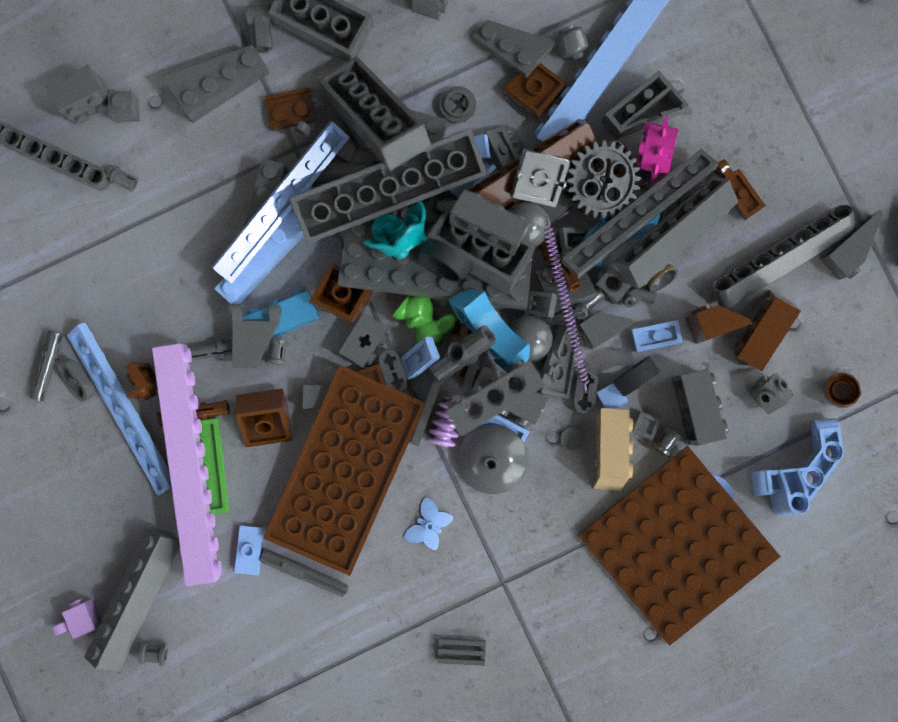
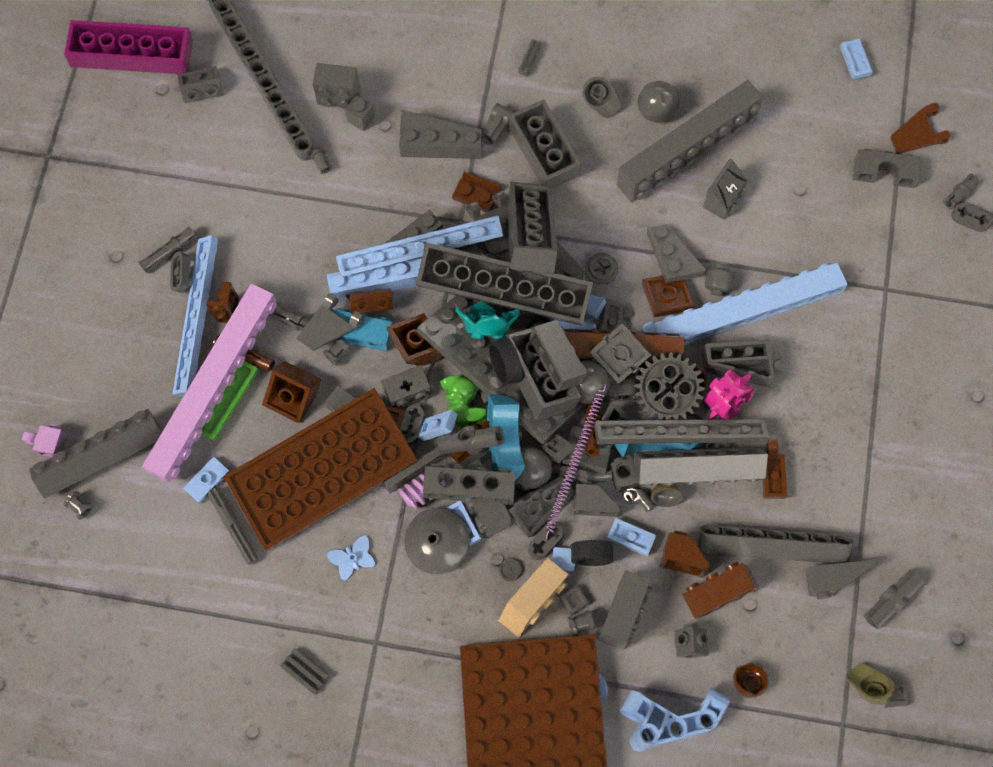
camera: 35 degrees right, 15 degrees down
(272, 285) = (370, 301): none -> reddish brown bracket

